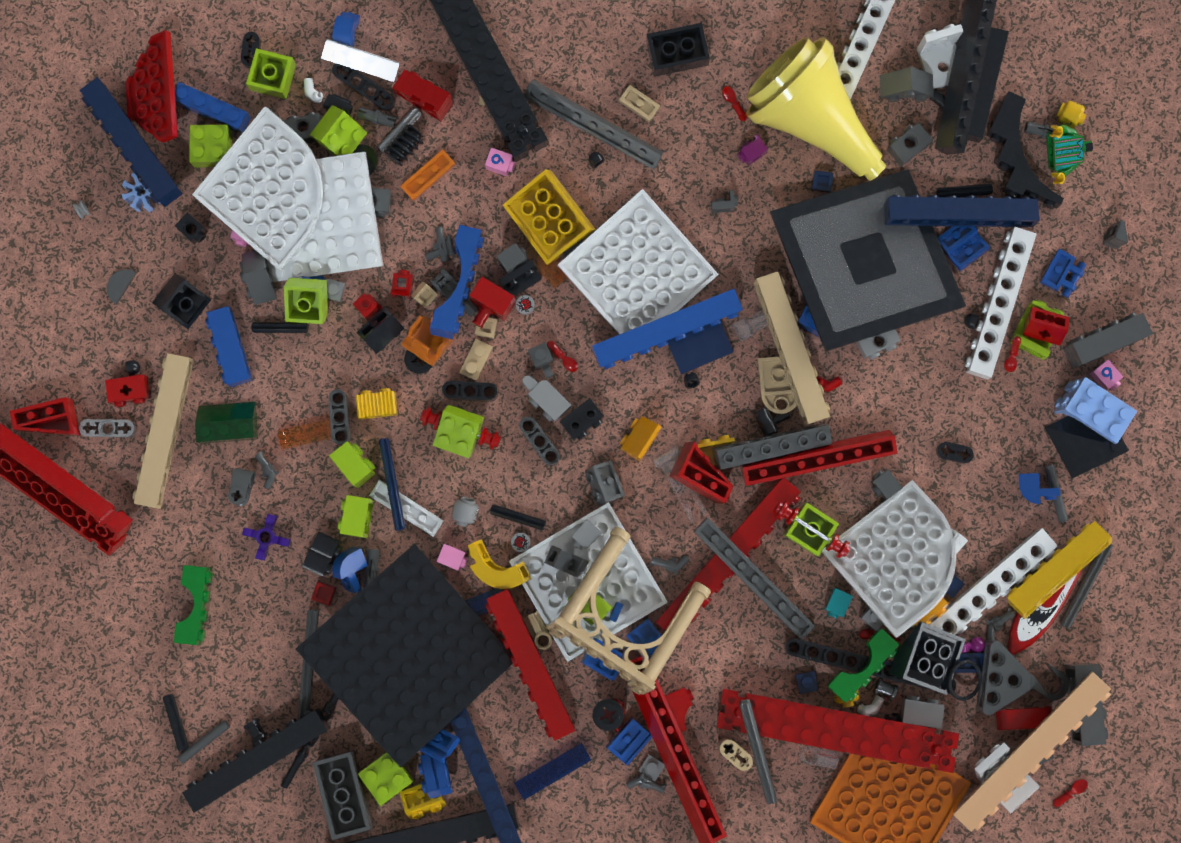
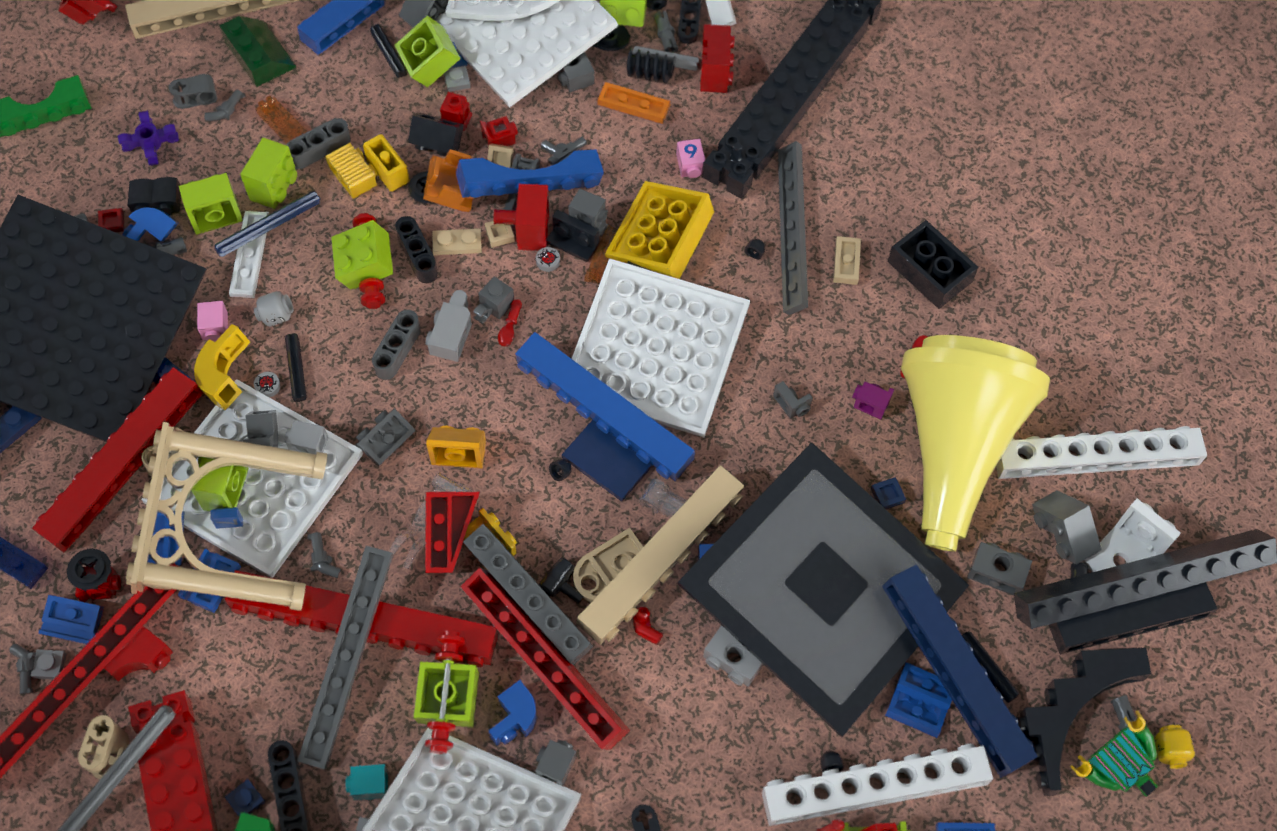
camera: 55 degrees right, 20 degrees down
(387, 377) = (386, 162): none -> yellow brick
(582, 419) = (446, 375): black brick -> none
(842, 489) = (522, 714): none -> blue brick

